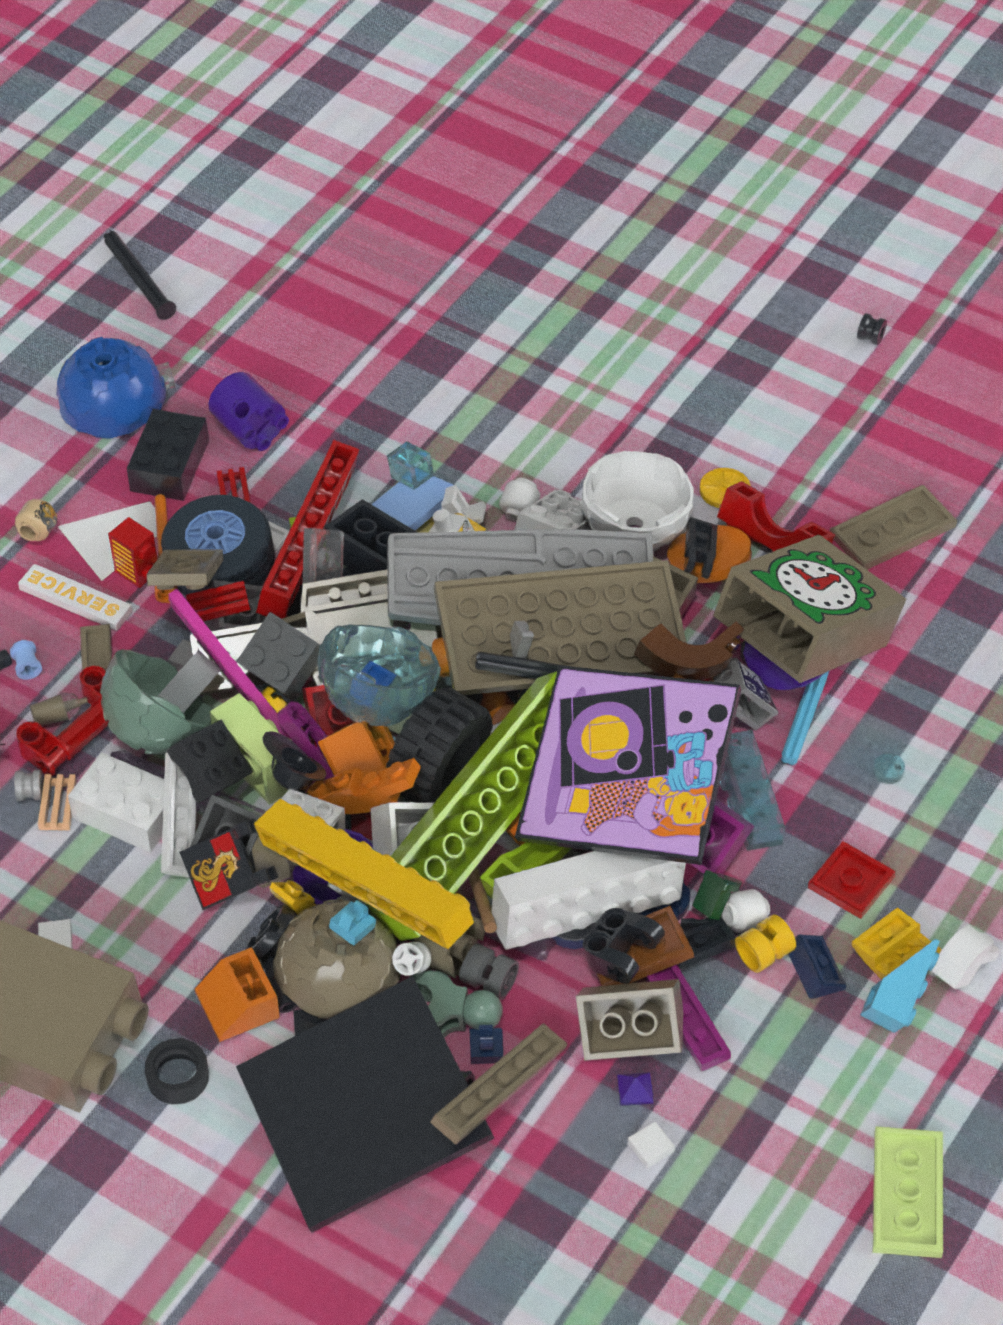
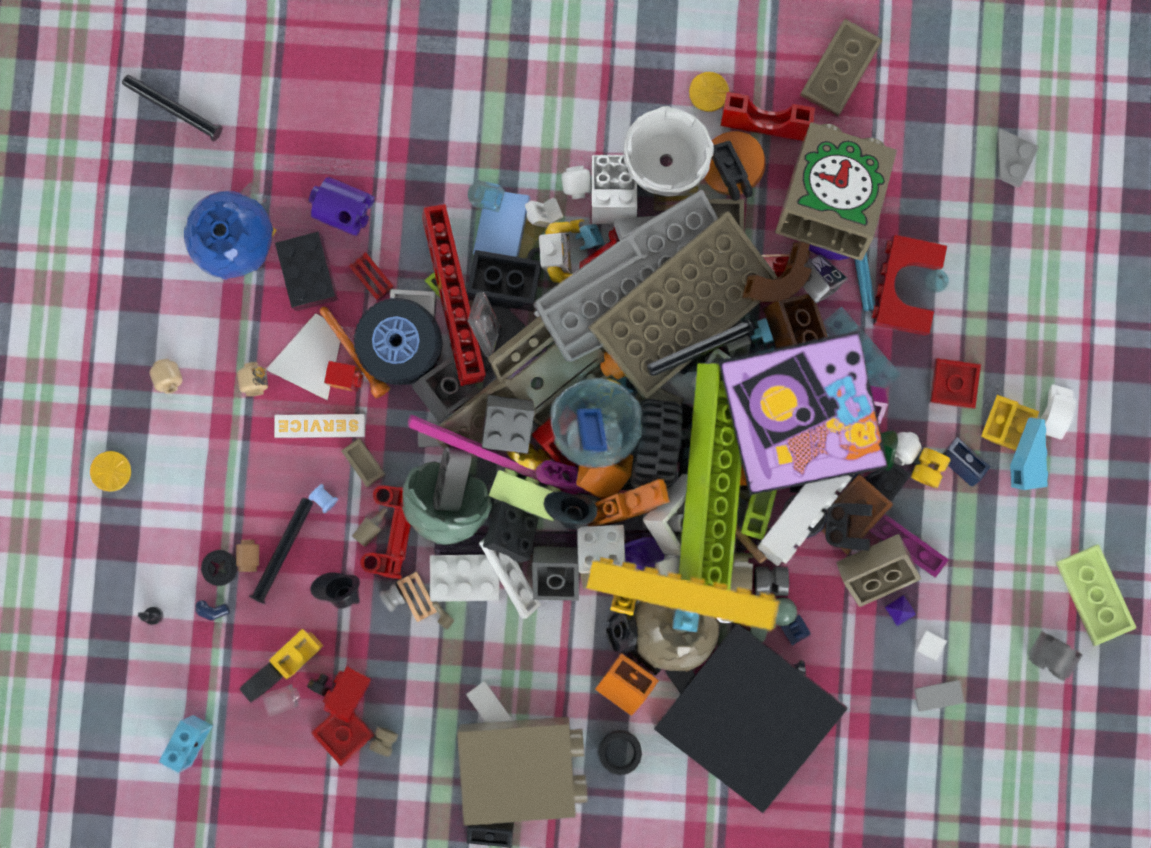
camera: 25 degrees left, 35 degrees up
(72, 837) = (445, 619): none -> dark tan hand
(185, 568) = (404, 394): dark tan plate -> none
(217, 598) = (420, 412): red tile -> none
(222, 867) = (565, 601): flag -> none
(498, 1083) = (830, 668): dark tan tile -> none
(520, 639) = (672, 343): light grey tile -> none
(627, 1207) = (939, 695): none -> light grey tile
(808, 1218) = (1055, 655): none -> flat silver brick
(857, 720) = (890, 310): none -> red arch

